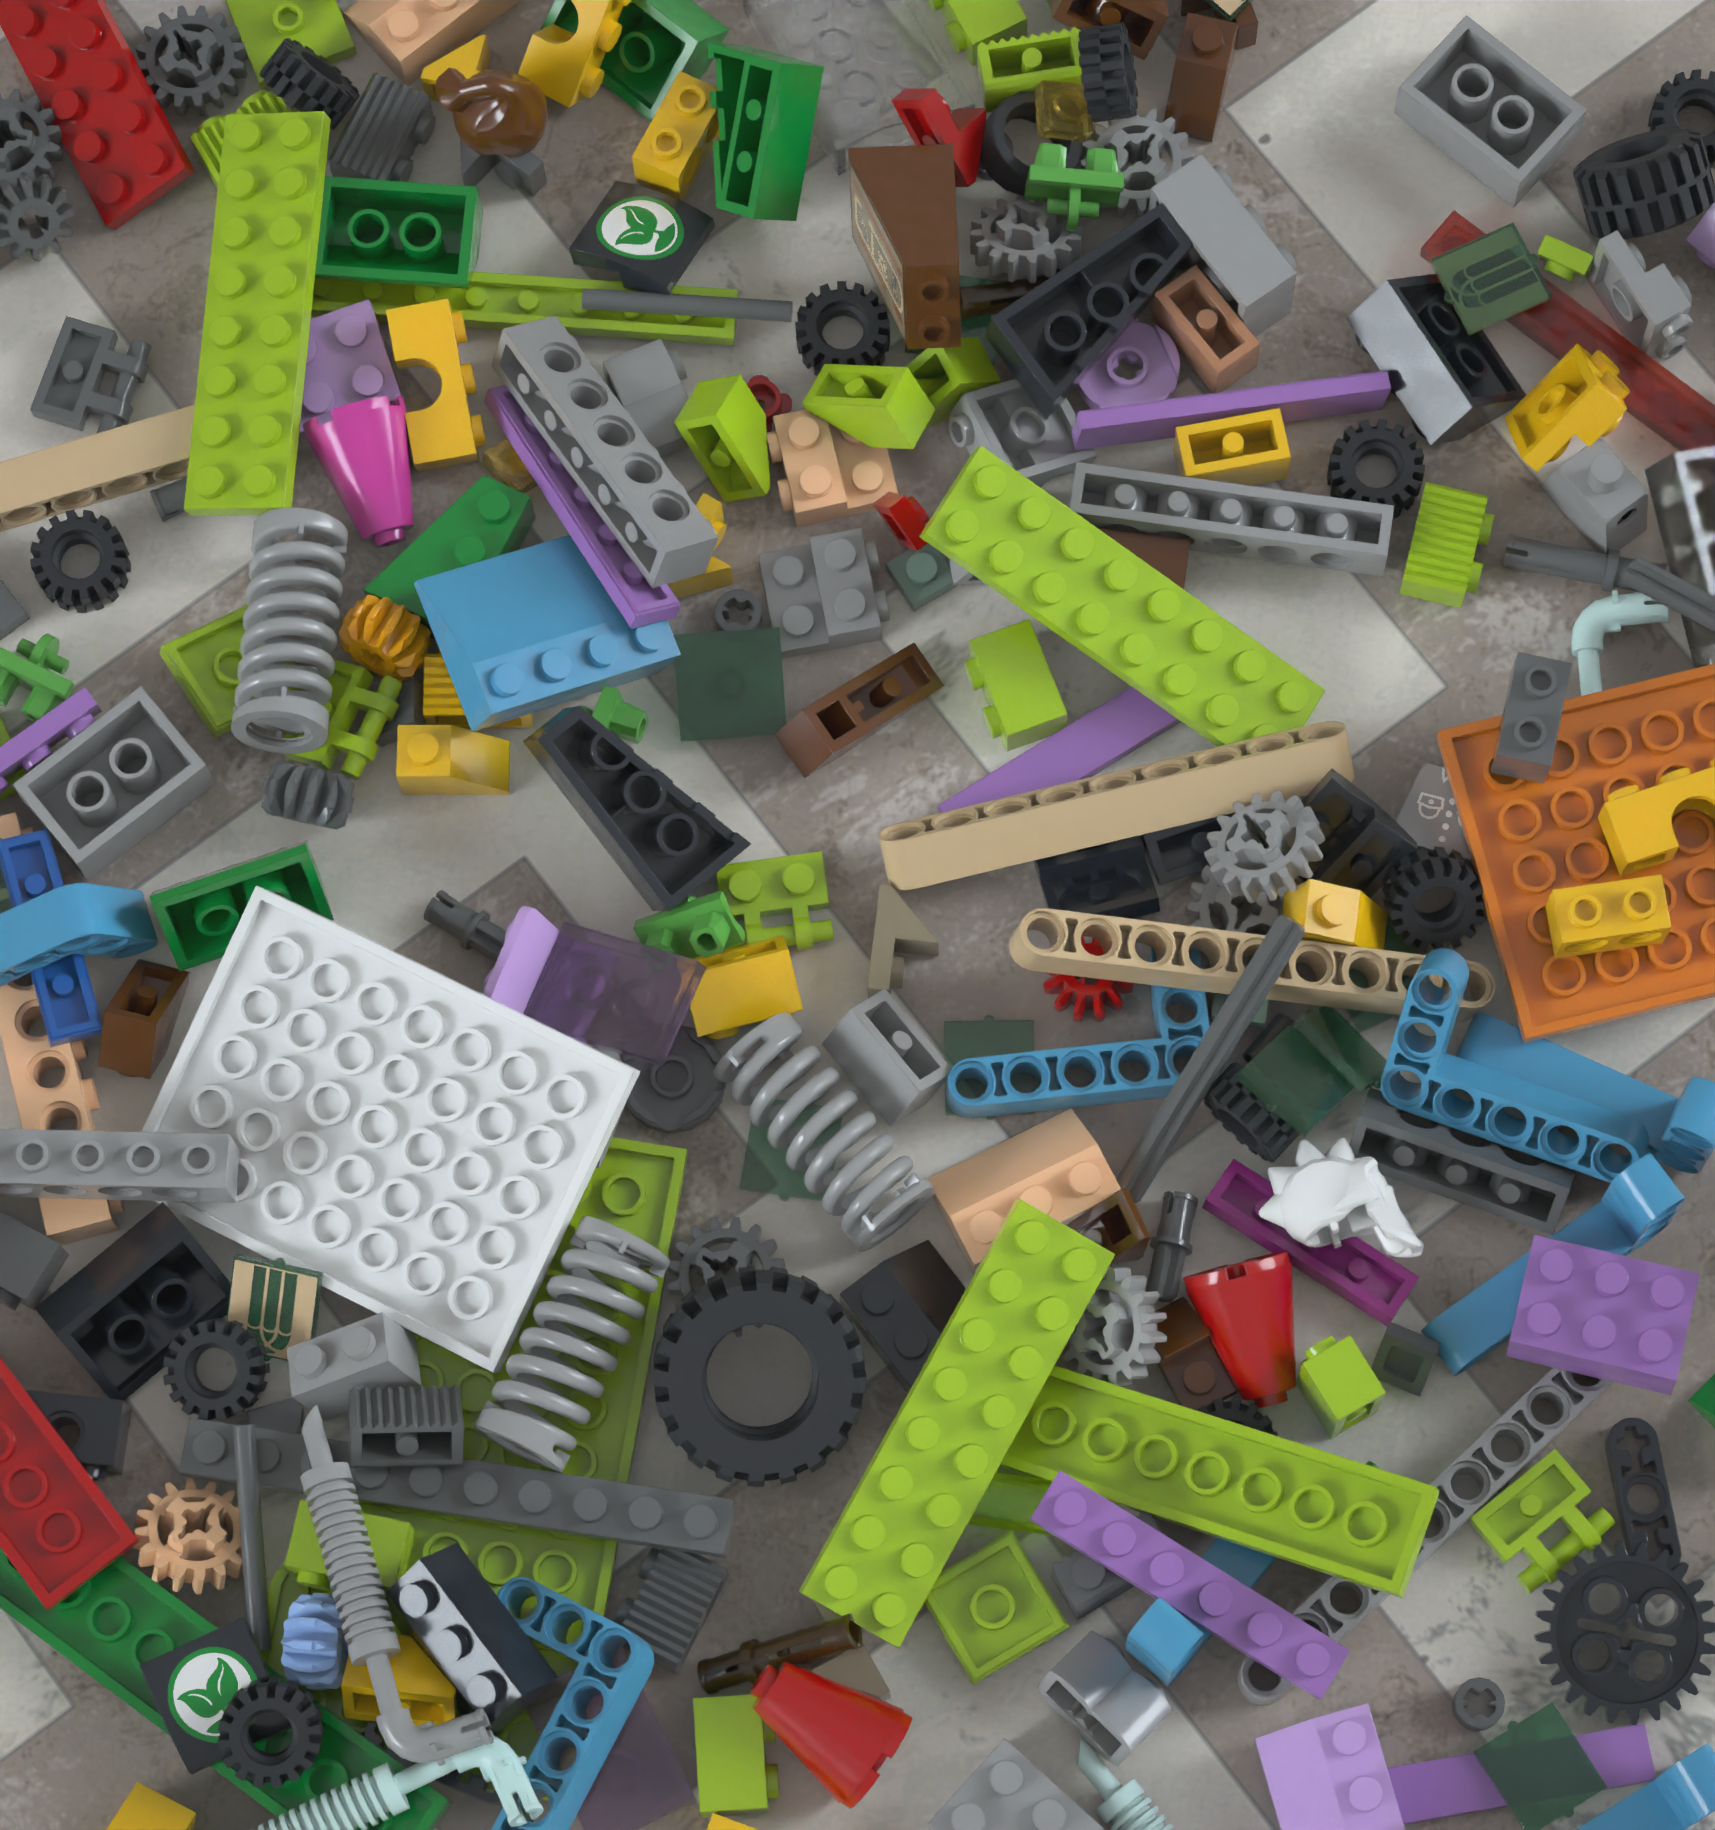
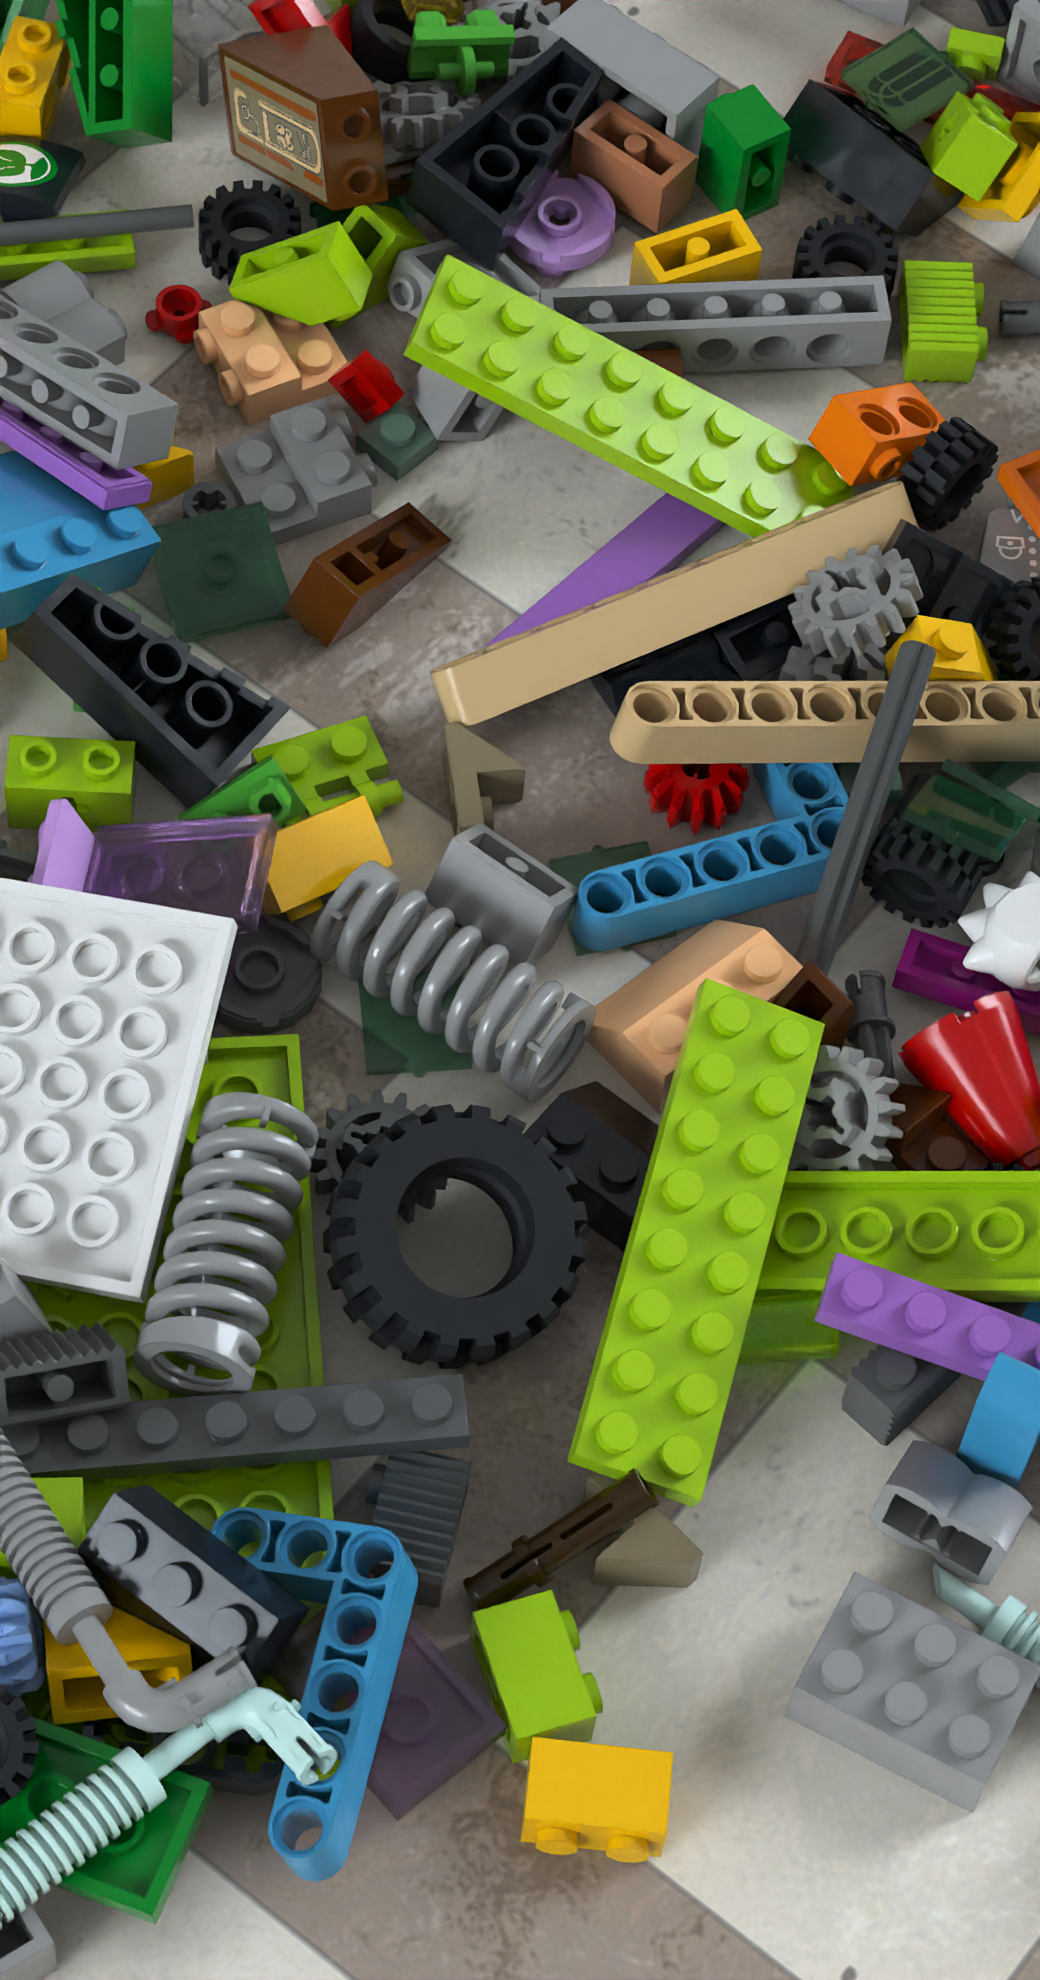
camera: 25 degrees left, 15 degrees down
(553, 871) = (89, 773): none -> lime brick
(728, 437) = (157, 335): lime slope -> none
(830, 1727) = (647, 1606): red cone -> none
(994, 1608) = (791, 1449): lime plate -> none
(1016, 685) = (532, 520): lime brick -> none
(1296, 401) = (608, 246): medium lavender tile -> none
(1307, 336) = (742, 153): none -> green brick
(1349, 665) = (874, 431): none -> orange brick
(1395, 717) = (947, 472): none -> black tyre
(1519, 373) = (969, 144): none -> lime brick

